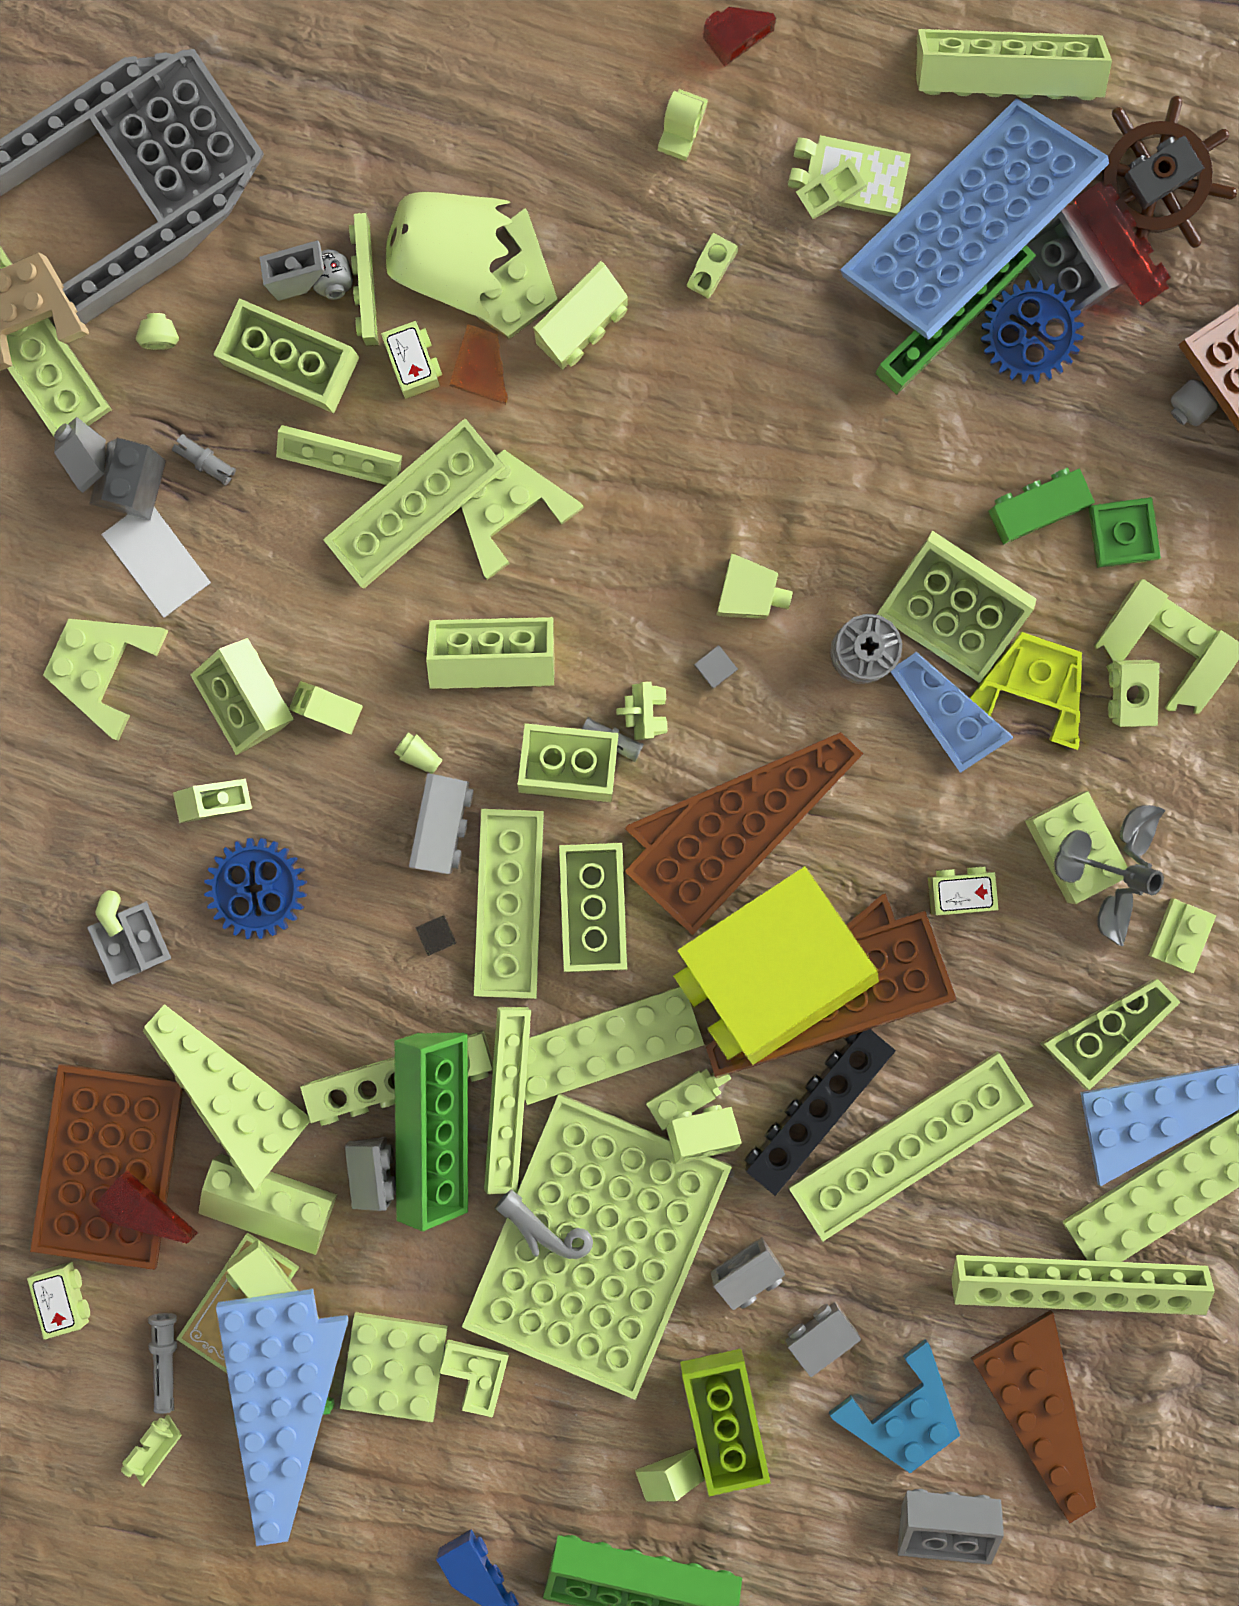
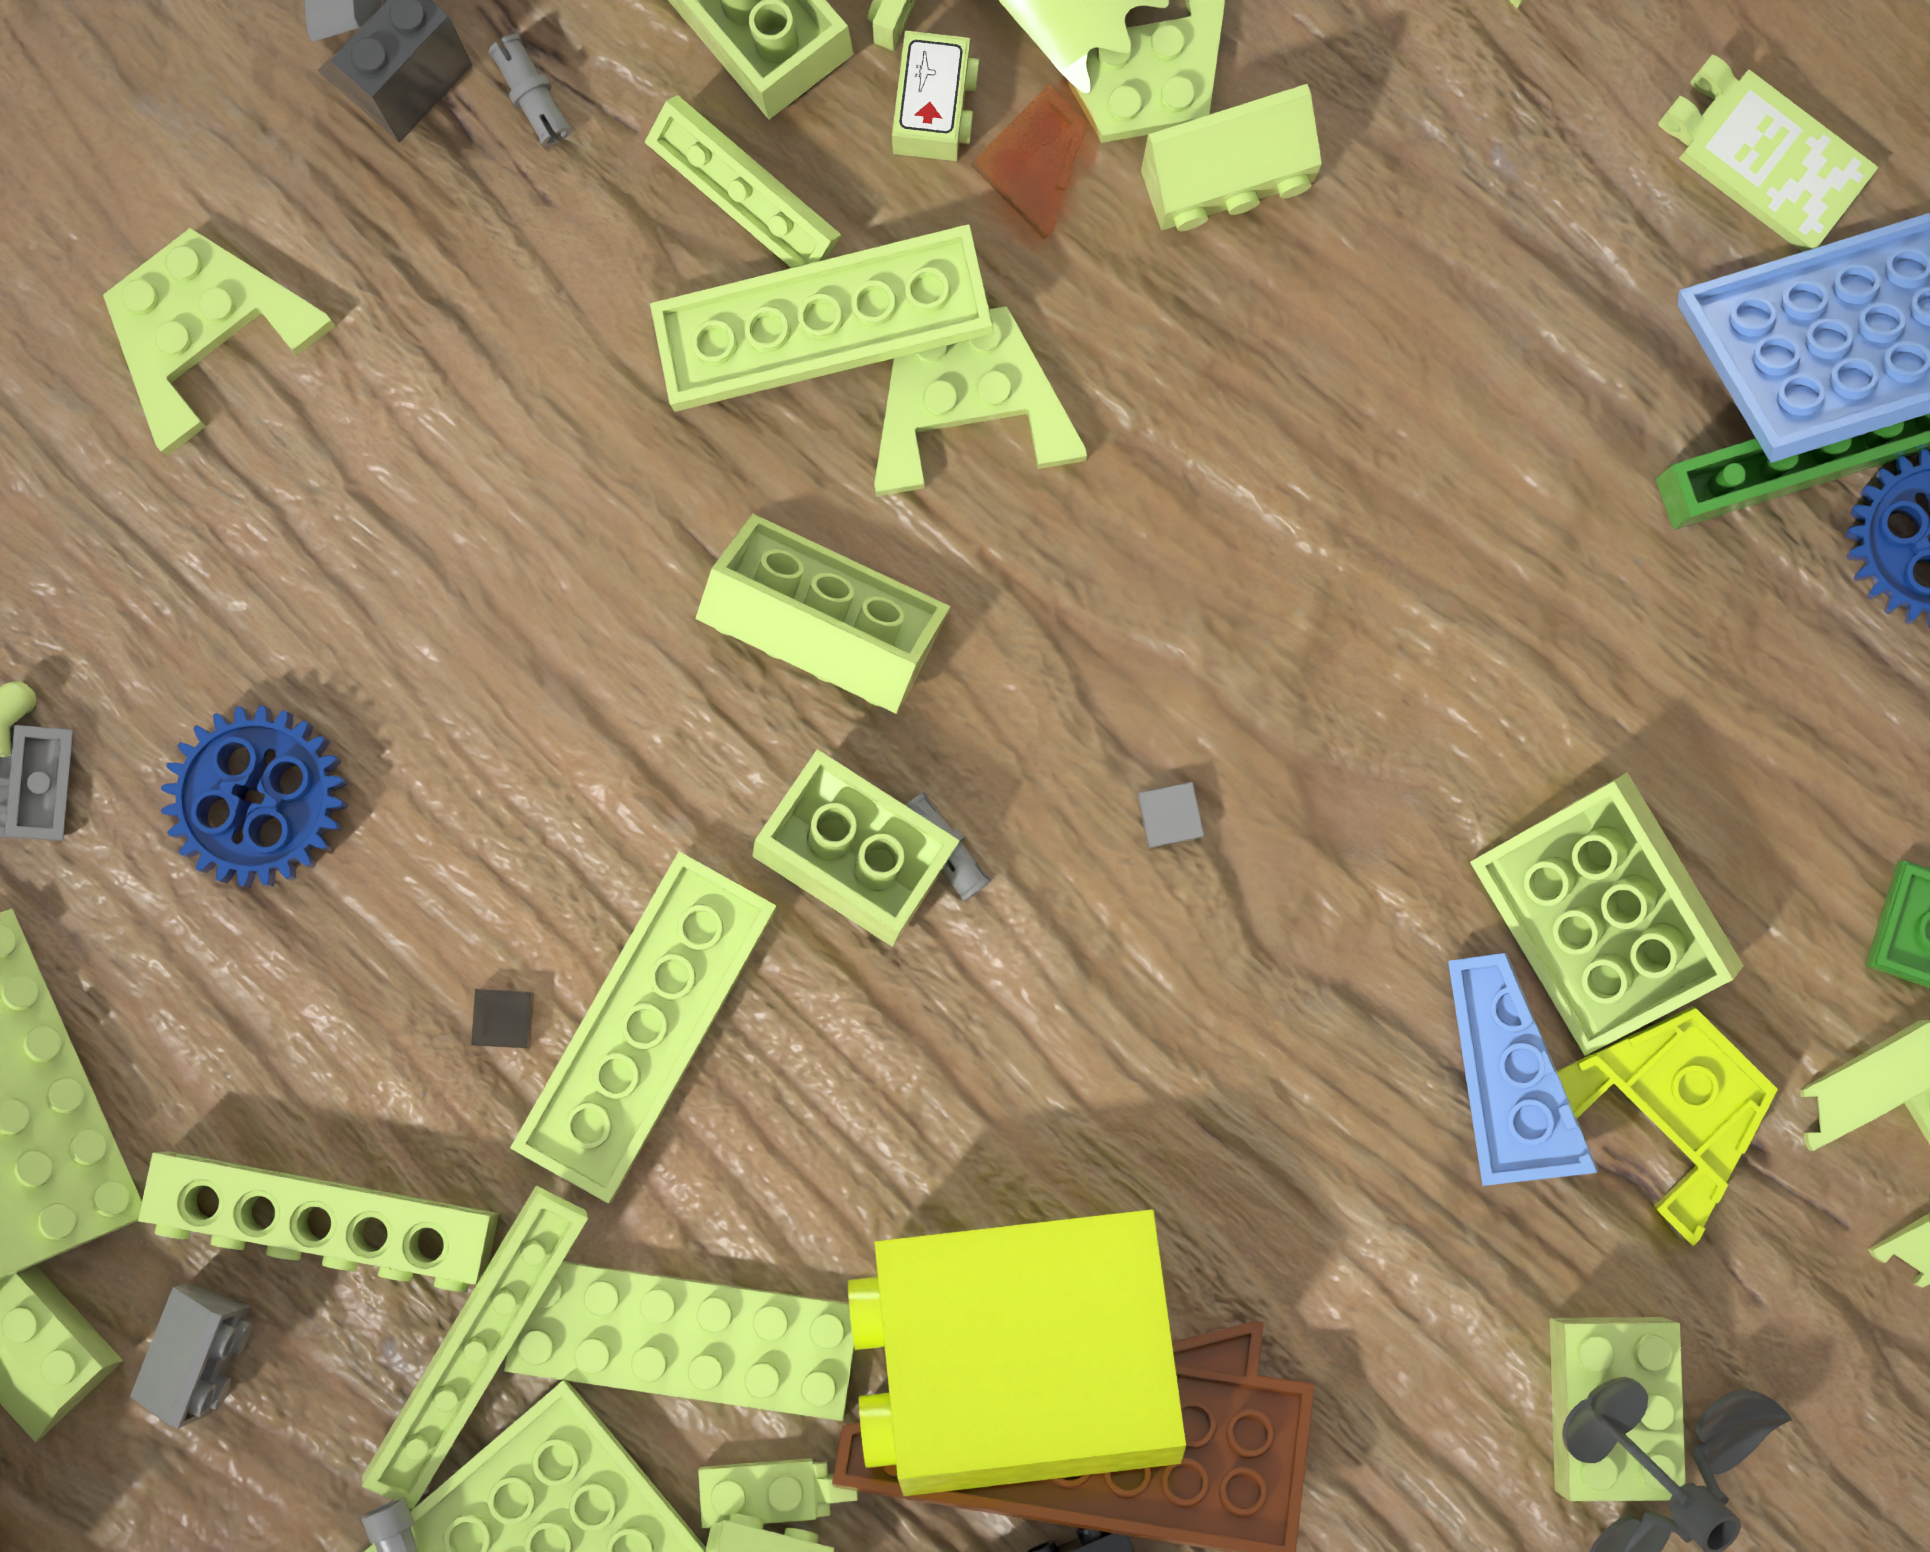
camera: 25 degrees right, 5 degrees down
(156, 560) = (375, 209): white sticker -> none
(212, 800) = (260, 622): yellowish green slope -> none
(241, 695) = (394, 482): yellowish green slope -> none
(325, 707) = (516, 567): yellowish green tile -> none
(417, 753) = (623, 713): yellowish green cone -> none
(431, 1128) = (325, 1331): bright green slope -> none
(441, 824) = (599, 843): light grey slope -> none
(593, 907) = (775, 1102): yellowish green brick -> none
(639, 711) = (1011, 824): yellowish green hips -> none
(712, 265) = (1479, 184): yellowish green leg -> none
(719, 837) = (1039, 1091): dark orange wing -> none
(750, 590) = (1287, 721): yellowish green torso -> none
(831, 189) = (1727, 160): yellowish green slope -> none
(855, 663) = (1398, 921): light grey wheel -> none
(962, 892) = (1390, 1385): brick -> none
(1040, 505) = (1823, 818): bright green brick -> none
(1144, 708) = (1836, 1232): yellowish green brick -> none

